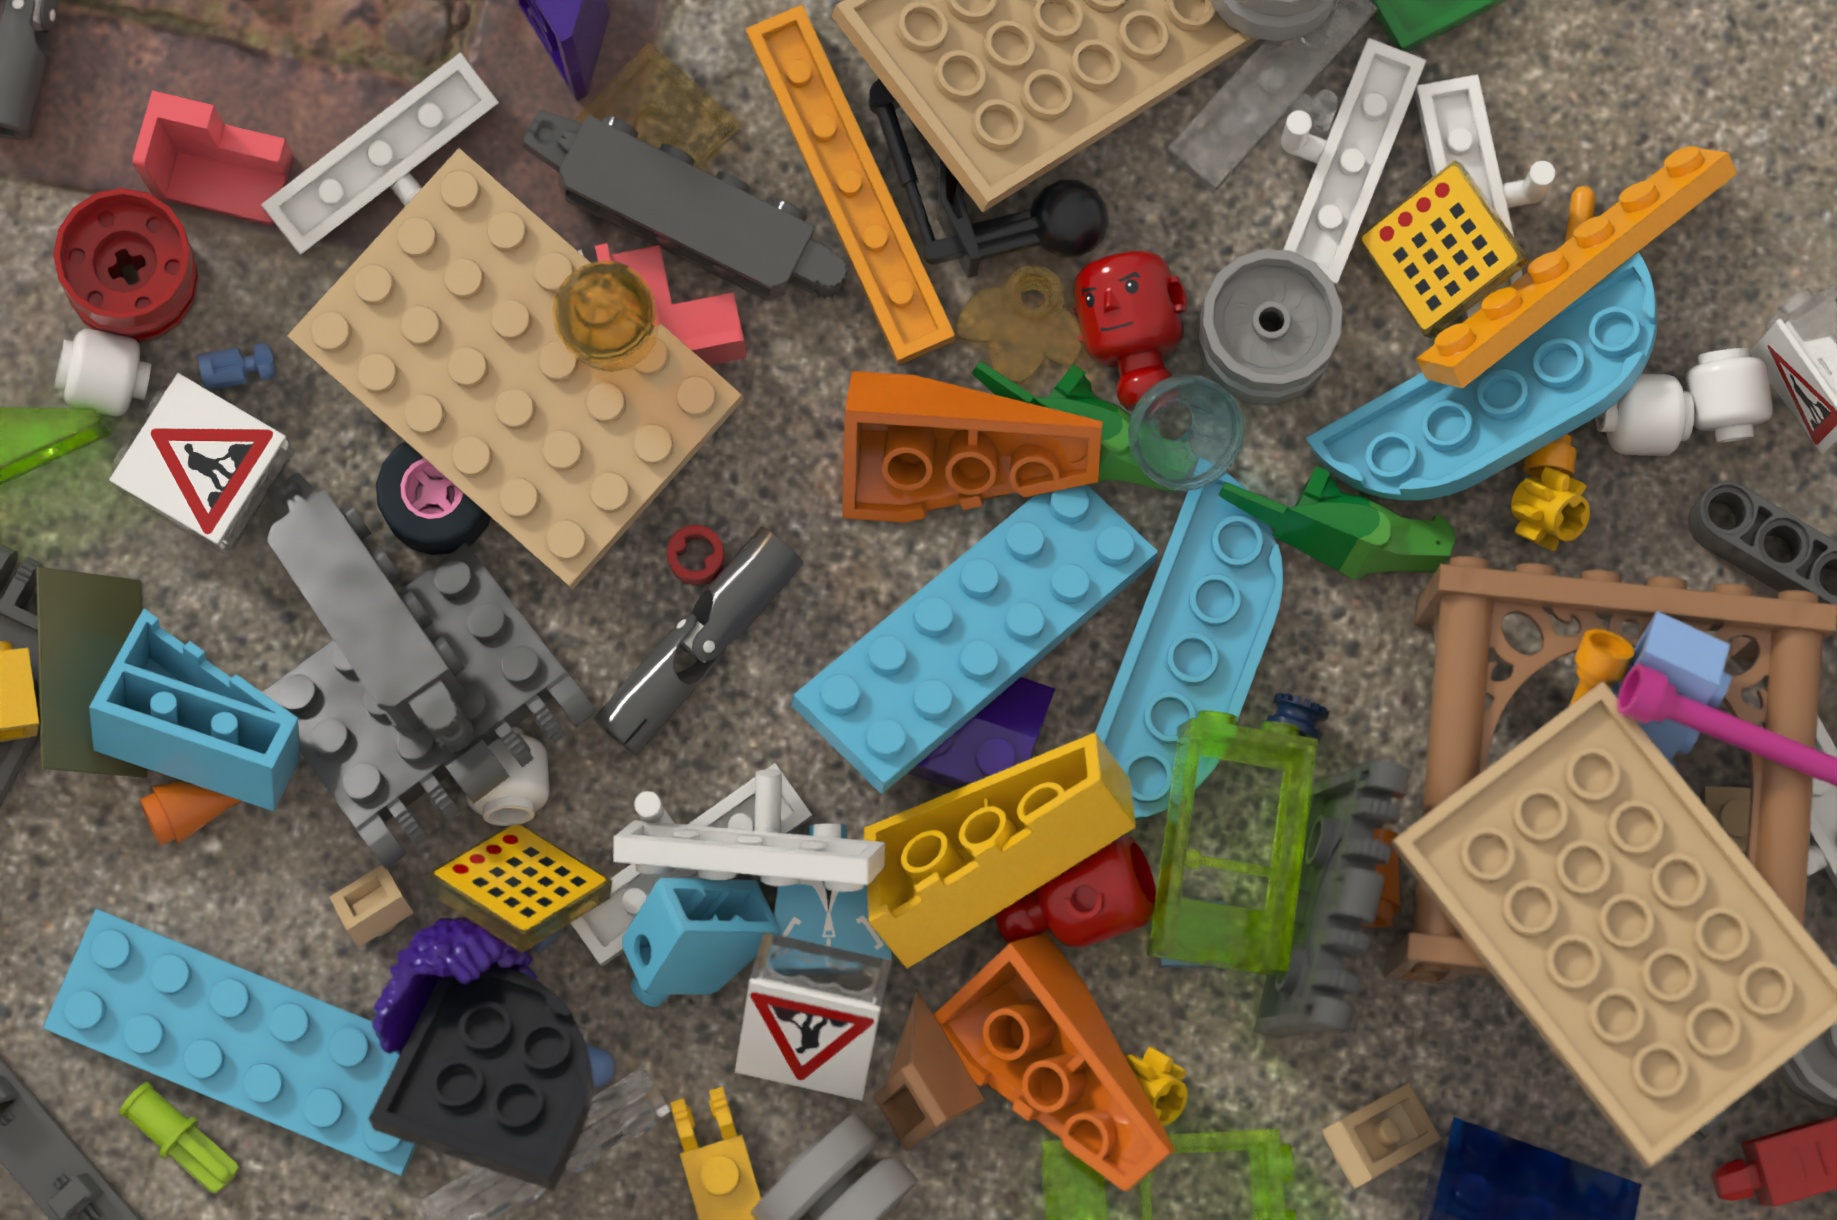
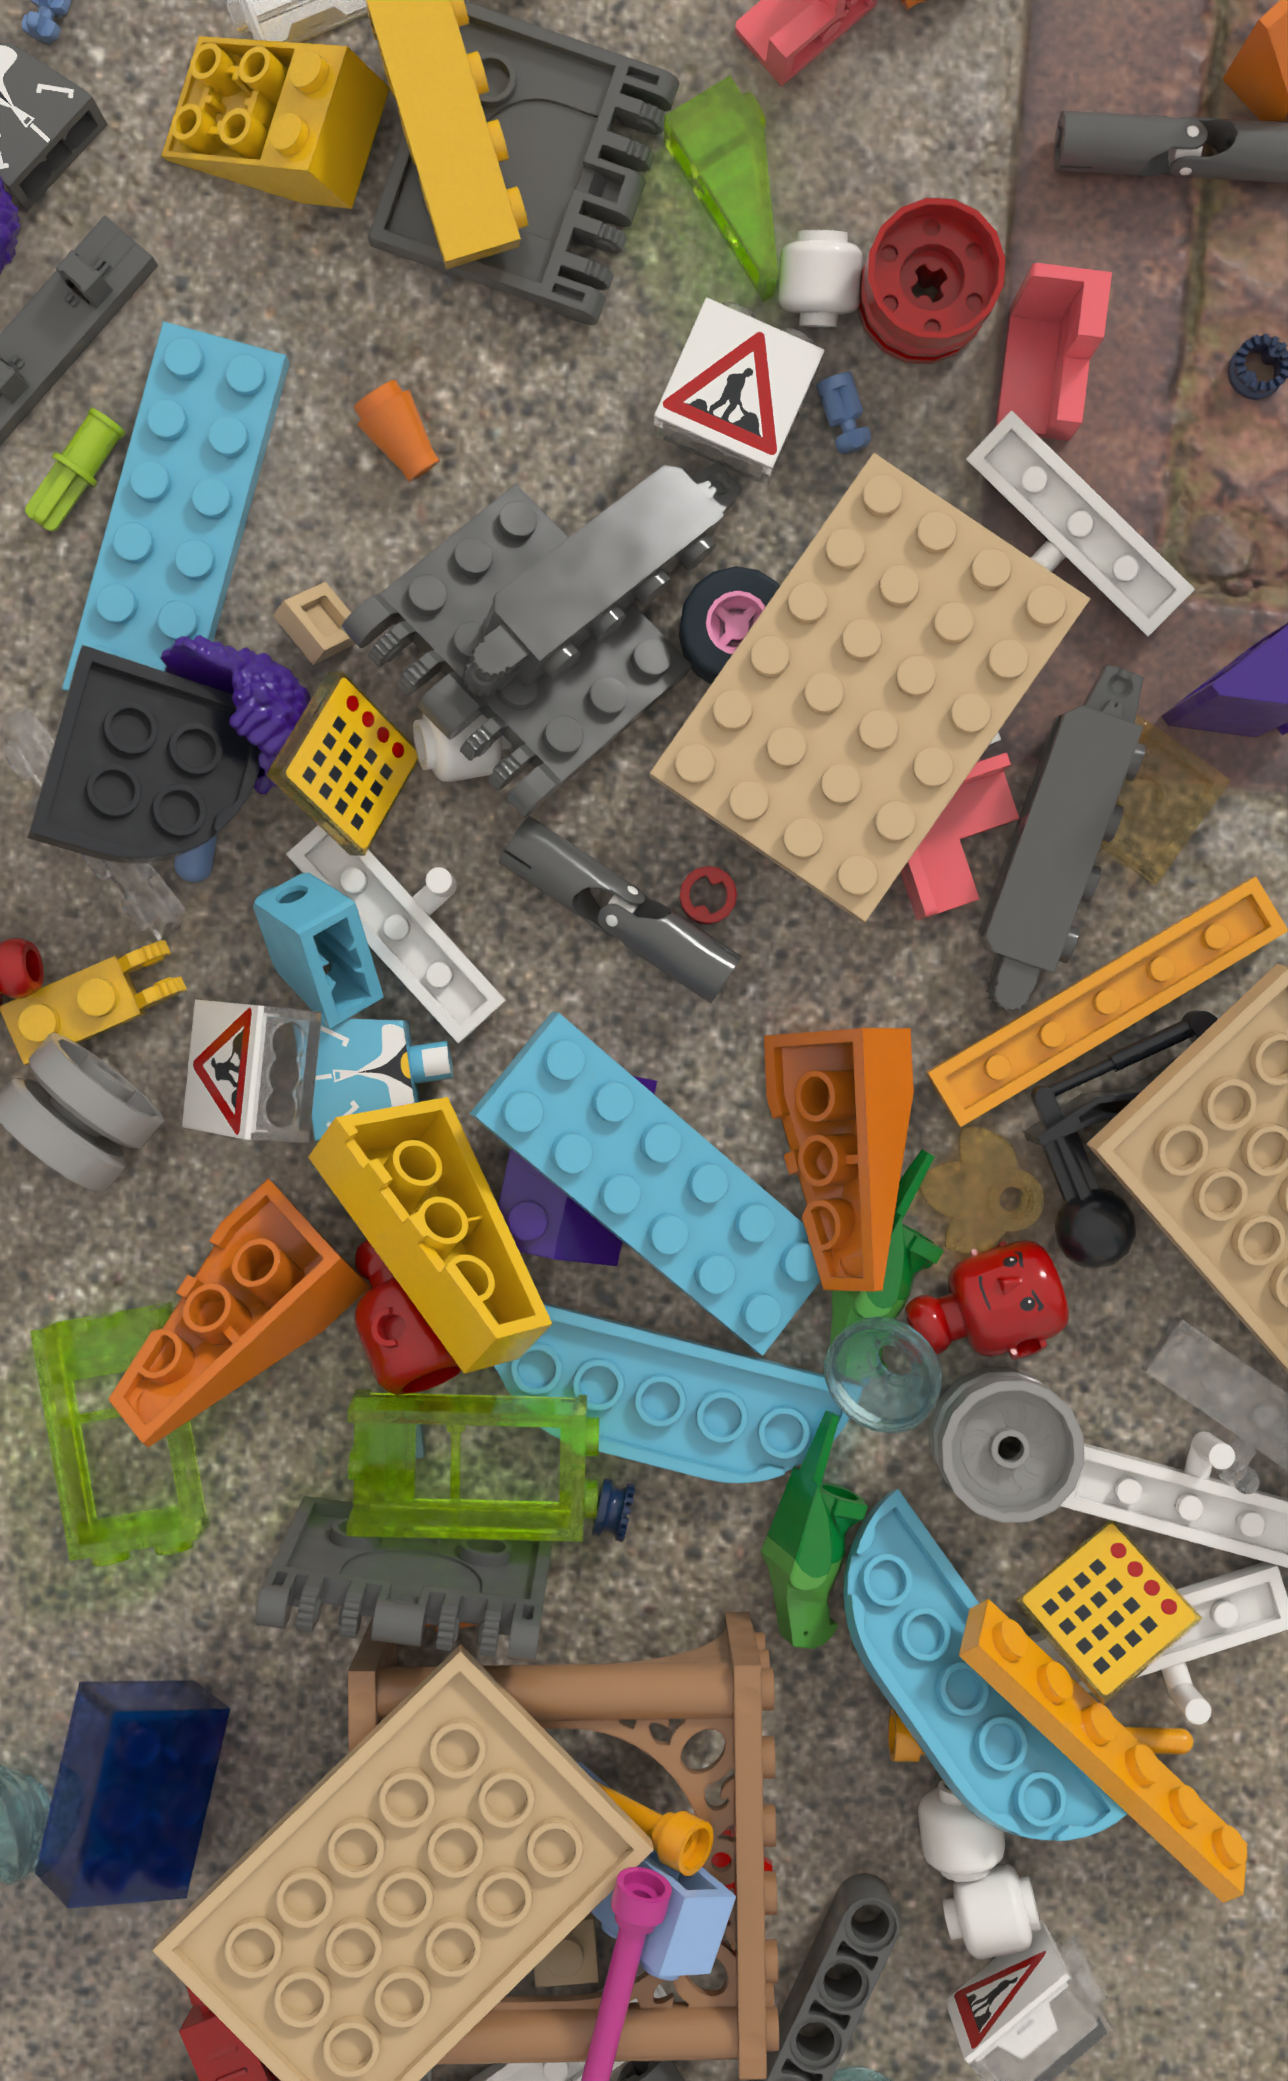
camera: 80 degrees right, 10 degrees up
(79, 637) = (512, 311): olive piece -> none
(192, 720) = (473, 413): medium azure wedge -> none
(606, 316) = (925, 771): clear yellow helmet -> none
(767, 852) = (399, 990): white plate -> none
(926, 1081) = (206, 1188): medium nougat slope -> none
(1161, 1083) = (233, 1414): yellow gear -> none
(1381, 1135) = (208, 1632): tan slope -> none
(1550, 508) = (853, 1742): yellow gear -> none

